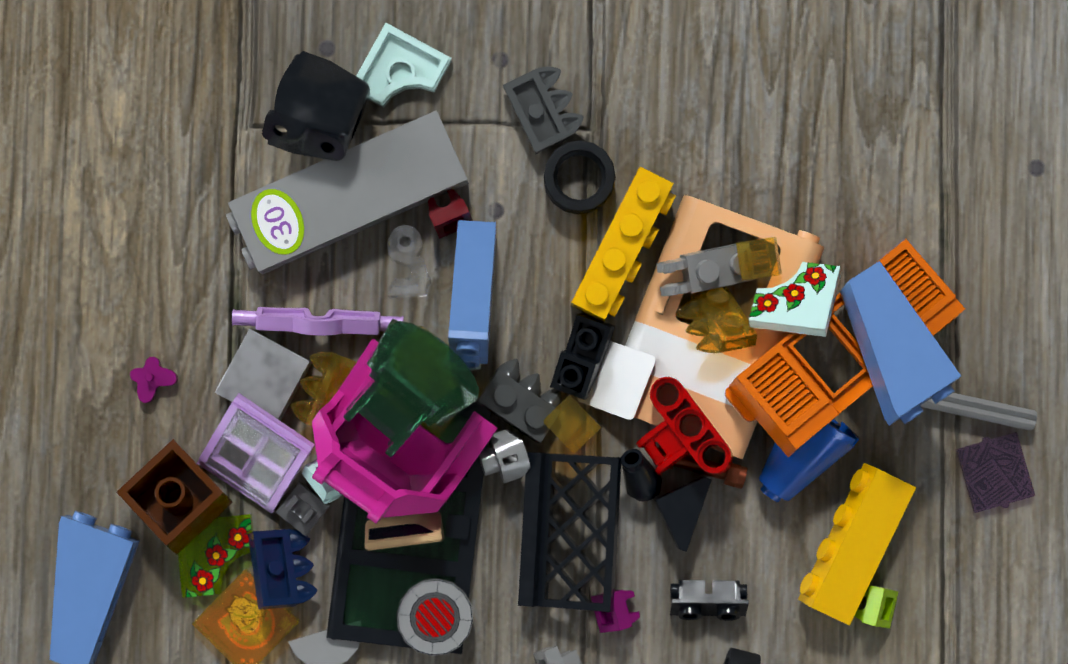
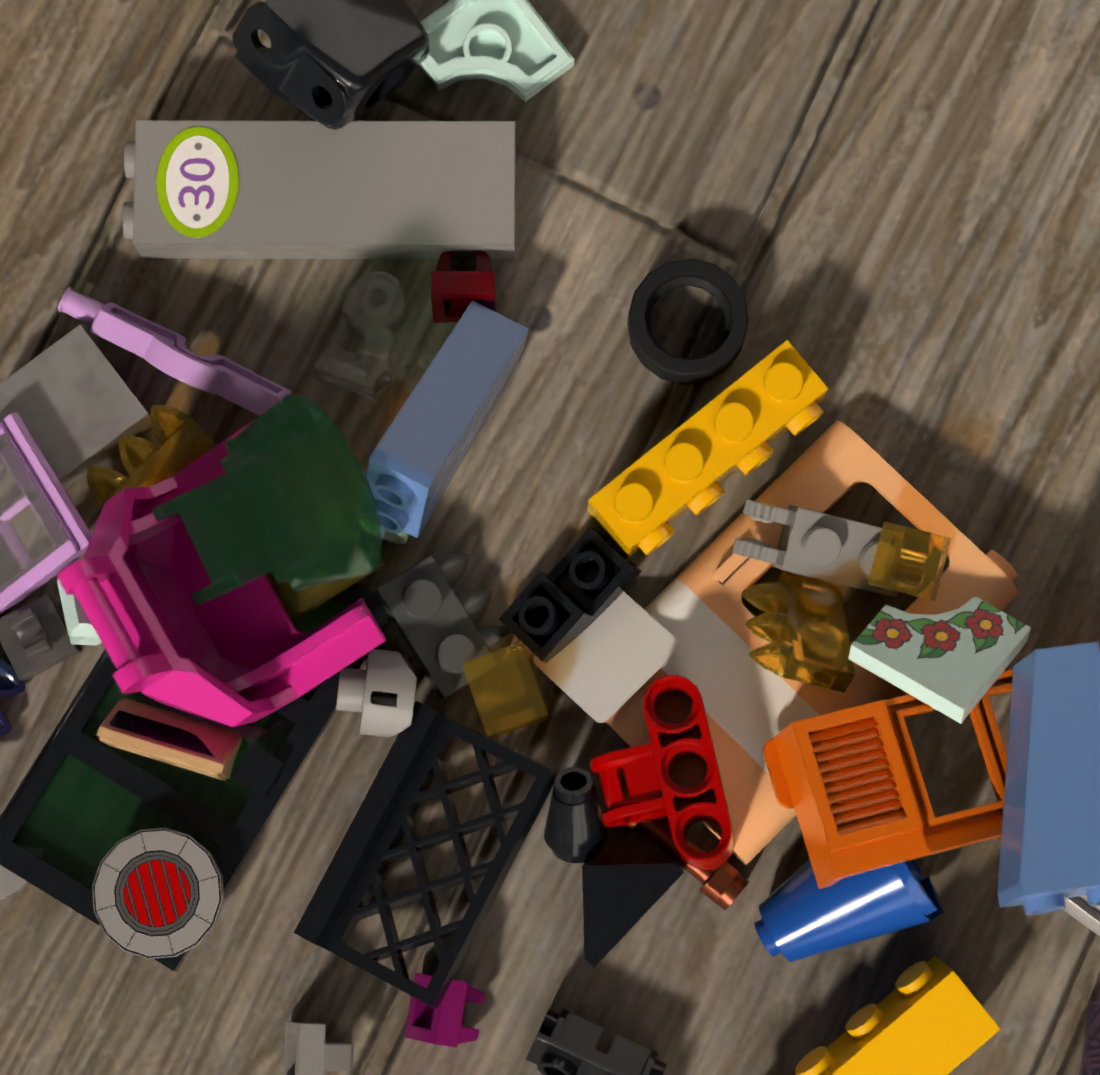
camera: 25 degrees right, 5 degrees down
(540, 109) = (673, 192): dark grey plate -> none

